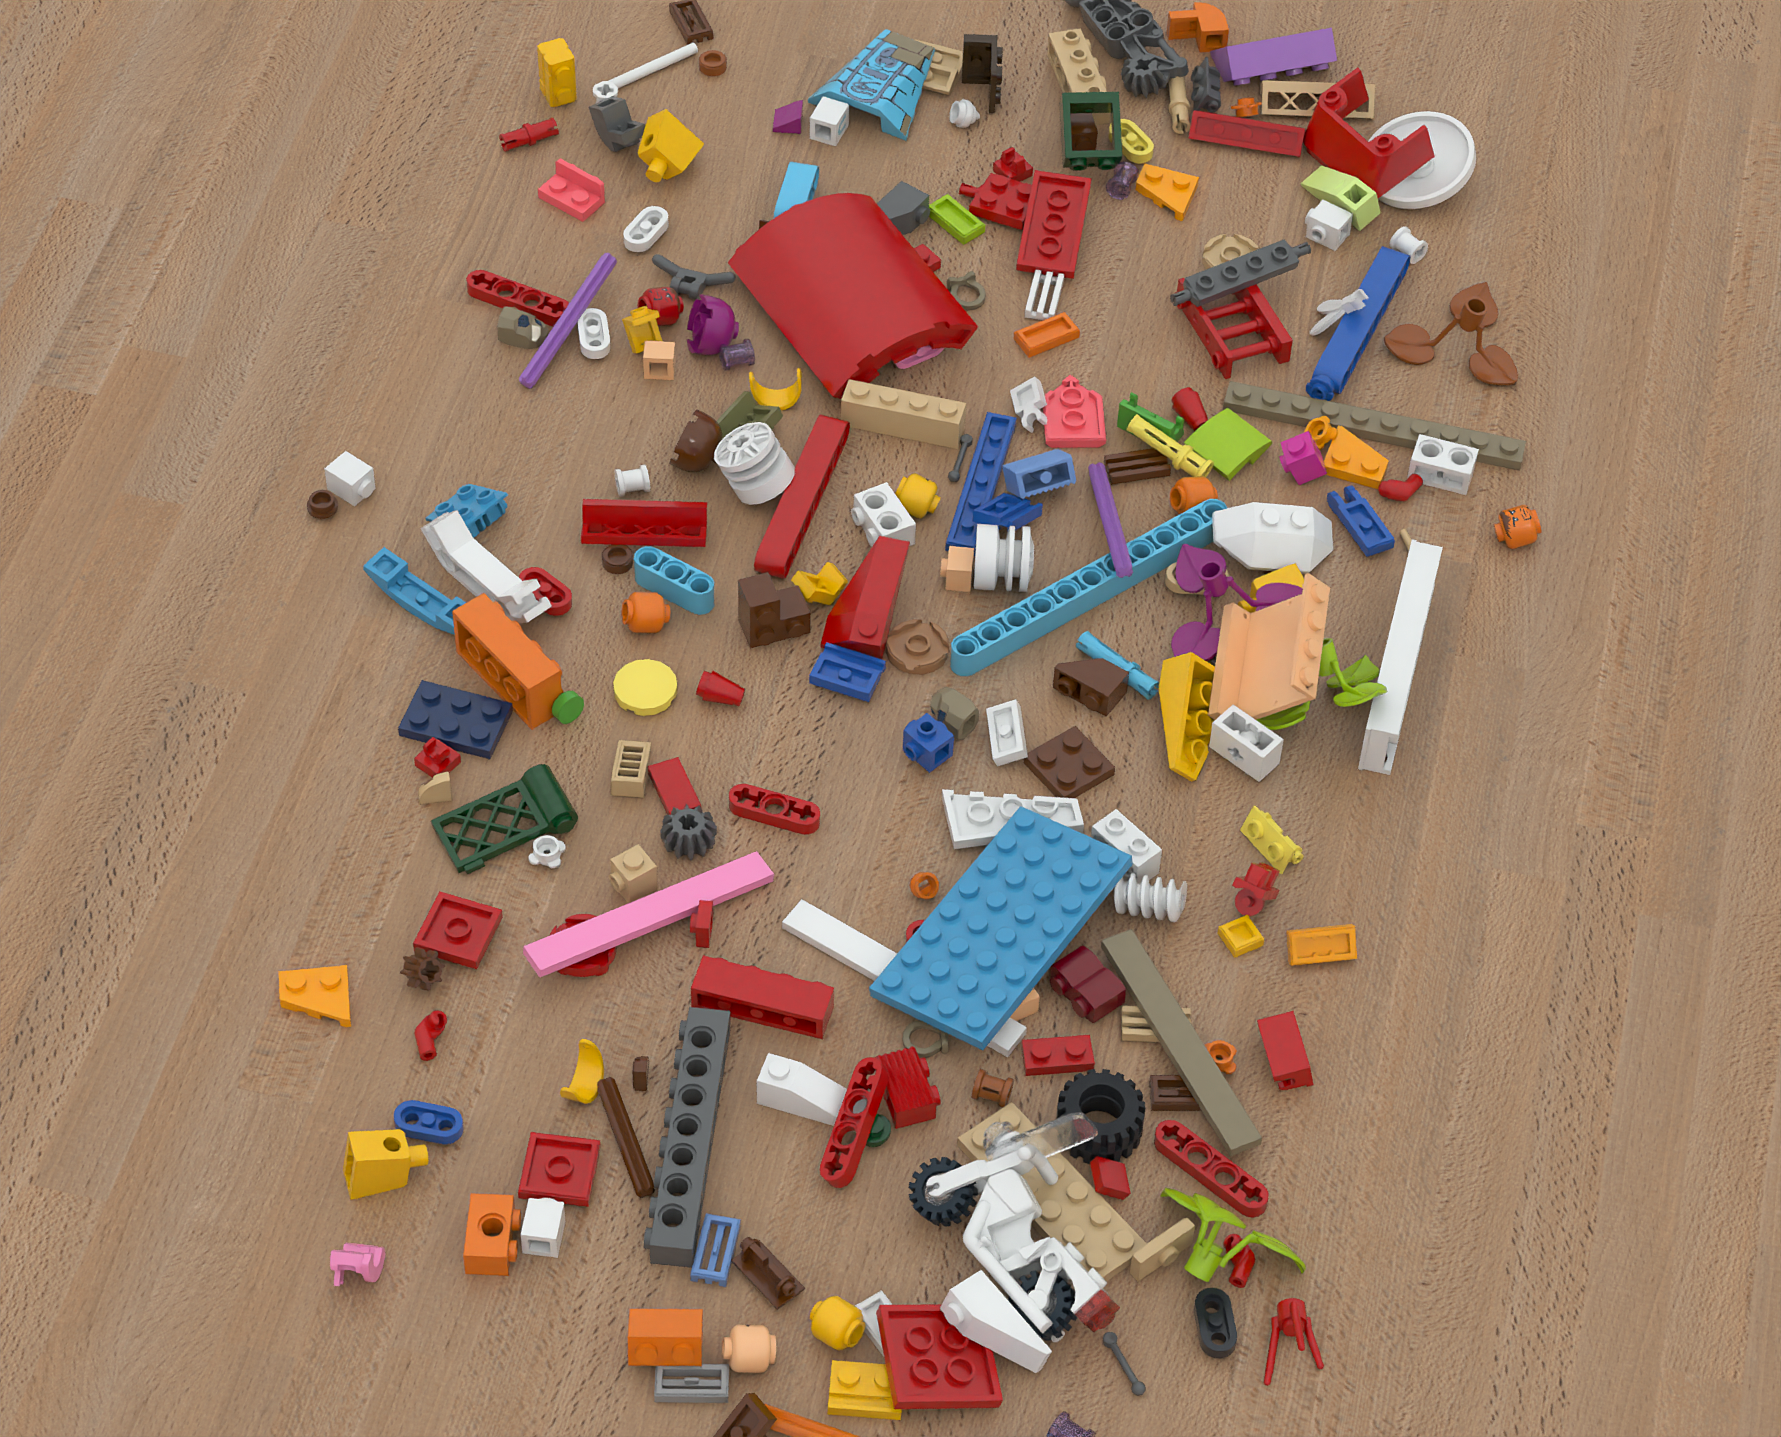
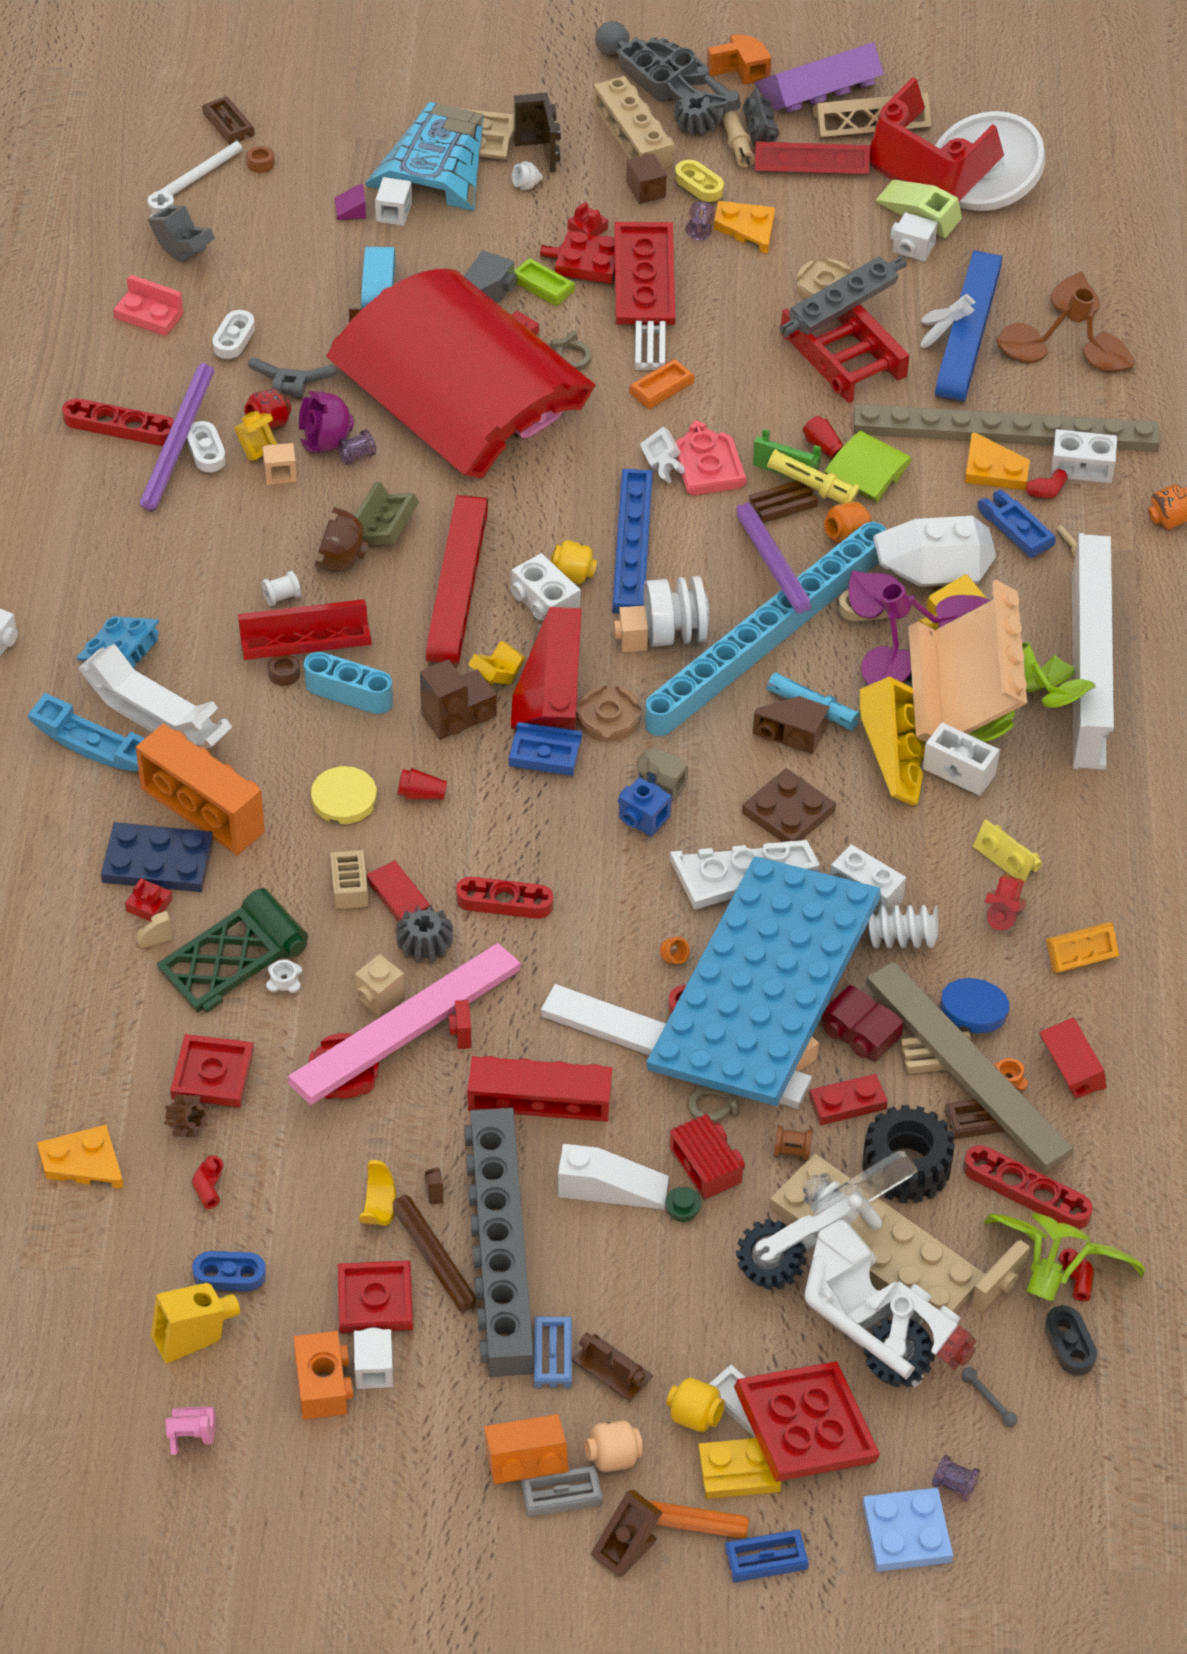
camera: 10 degrees left, 0 degrees up
(520, 329) = (130, 452): dark tan rock -> none
(528, 134) = (90, 255): red pin -> none
(556, 592) = (227, 709): red plate -> none
(557, 72) = (107, 189): yellow brick -> none
(567, 707) = (270, 826): bright green tile -> none
(645, 612) = (327, 719): orange head -> none
(667, 146) = (237, 248): yellow torso -> none
(754, 463) = (404, 553): white wheel -> none
(780, 398) = (413, 483): yellow helmet -> none
(858, 1122) = (659, 1199): red beam -> none
(903, 414) = (540, 482): tan brick -> none
(966, 441) = (606, 501): dark grey hinge -> none
(991, 1321) = (852, 1376): white slope -> none
(1006, 732) = (720, 785): white plate -> none
(1007, 511) = (668, 564): blue plate -> none
(1039, 473) = (690, 522): medium blue brick -> none
(1090, 103) = (654, 148): dark green window -> none
(1110, 1178) = (931, 1213): red tile -> none
(1202, 984) = (975, 1005): none -> blue tile
(1240, 936) = (999, 951): yellow tile -> none
(1246, 107) = (805, 132): orange plate -> none
(1293, 1322) = (1147, 1326): red plant -> none
(1302, 458) = (946, 469): dark pink brick -> none
(1318, 425) = (951, 436): light orange plate -> none
(1321, 387) = (947, 393): blue plate -> none
(1408, 244) = (995, 244): white bush -> none

